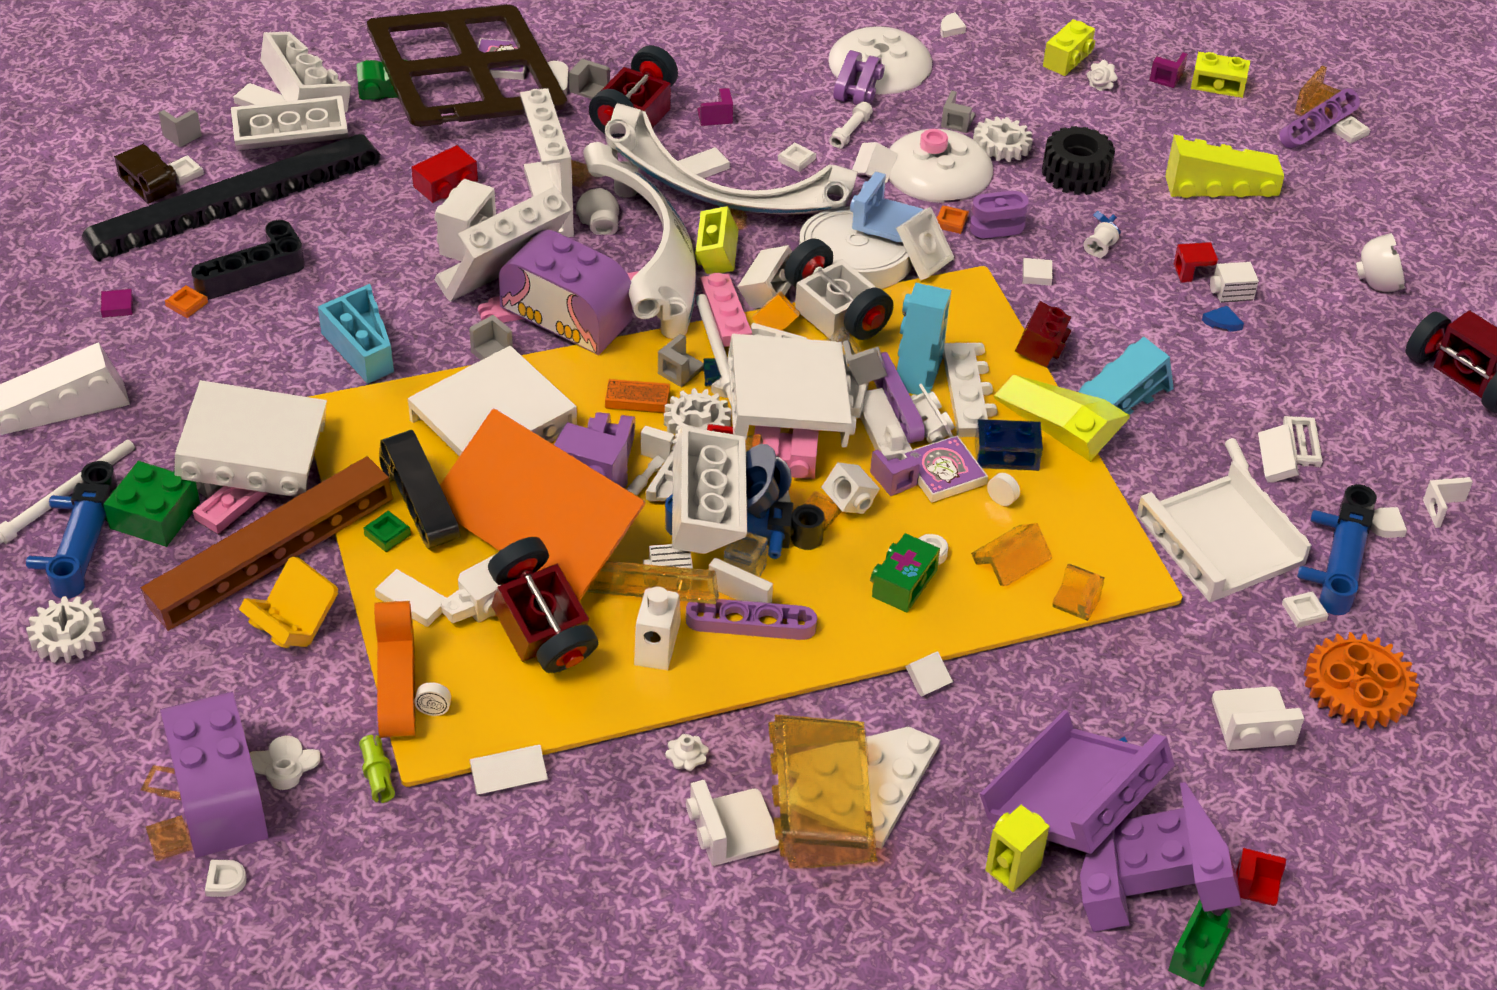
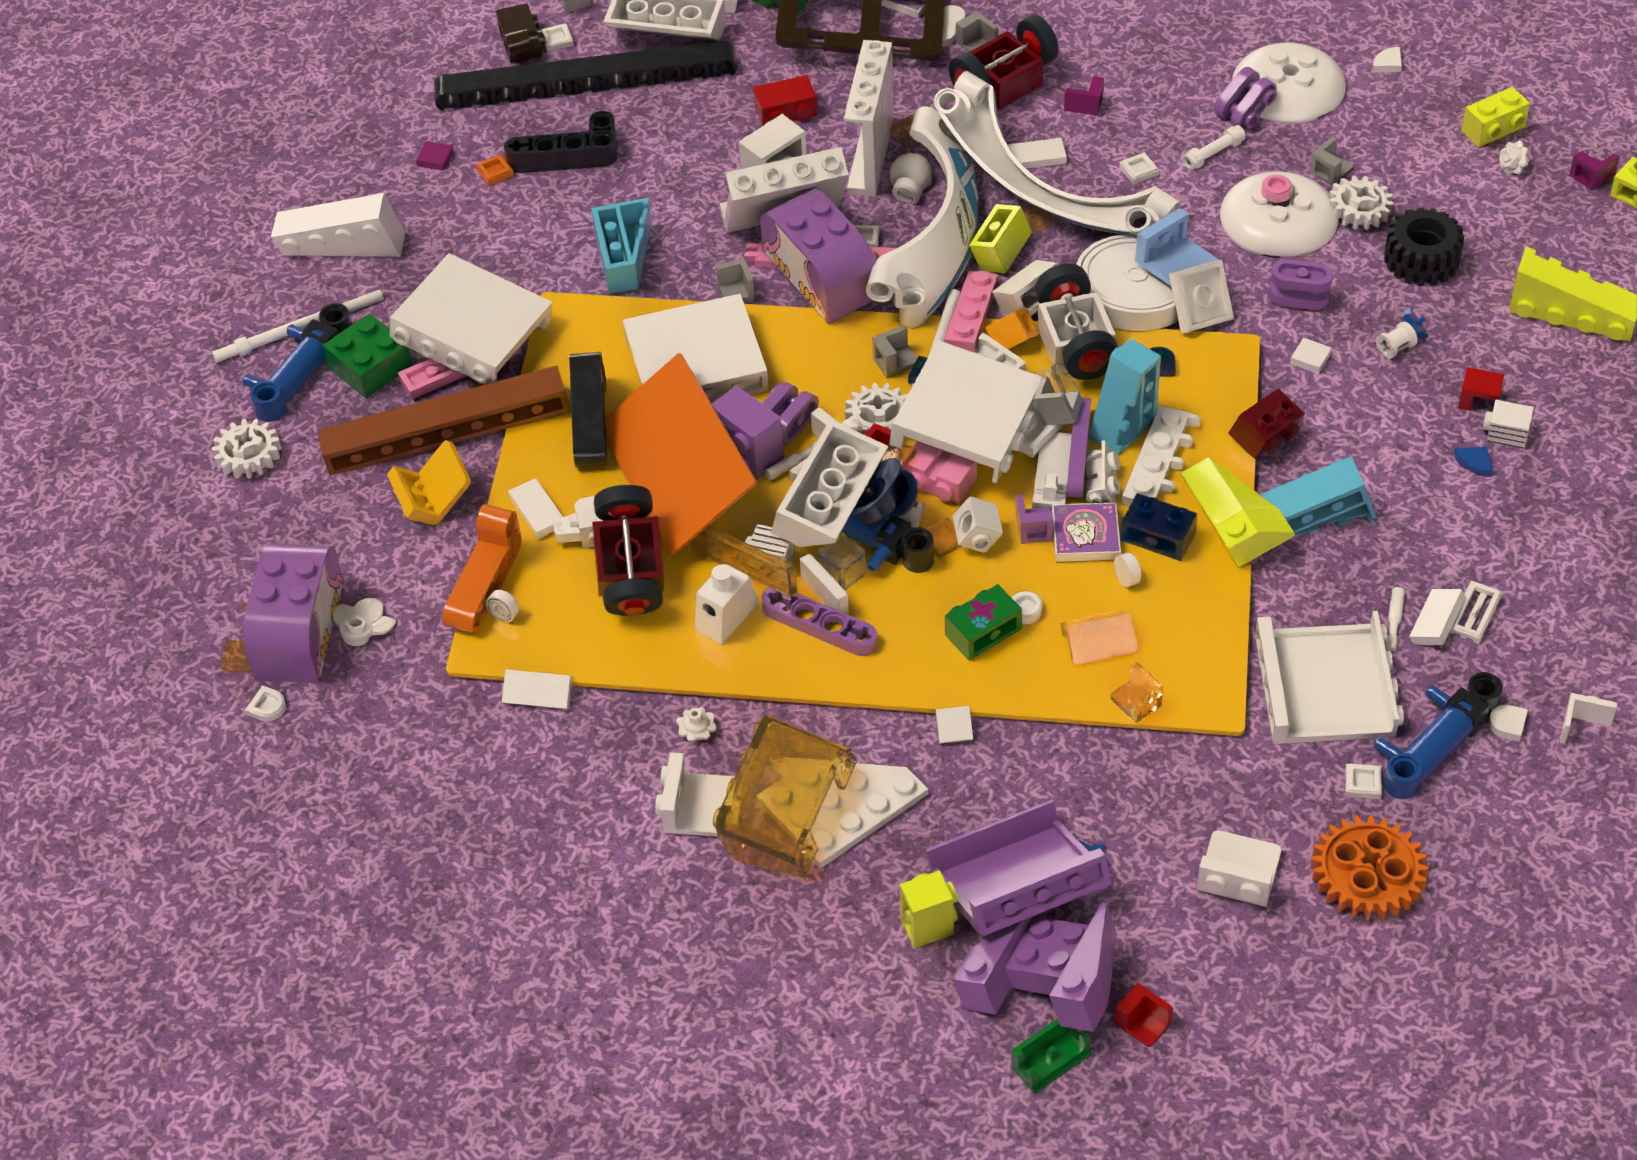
camera: 30 degrees right, 5 degrees up
(376, 768) = (431, 652): lime pin -> none
(387, 531) = (548, 440): green tile -> none
(637, 395) = (837, 374): orange tile -> none
(874, 158) = (1211, 195): white panel -> none
(952, 219) = (1255, 276): orange tile -> none

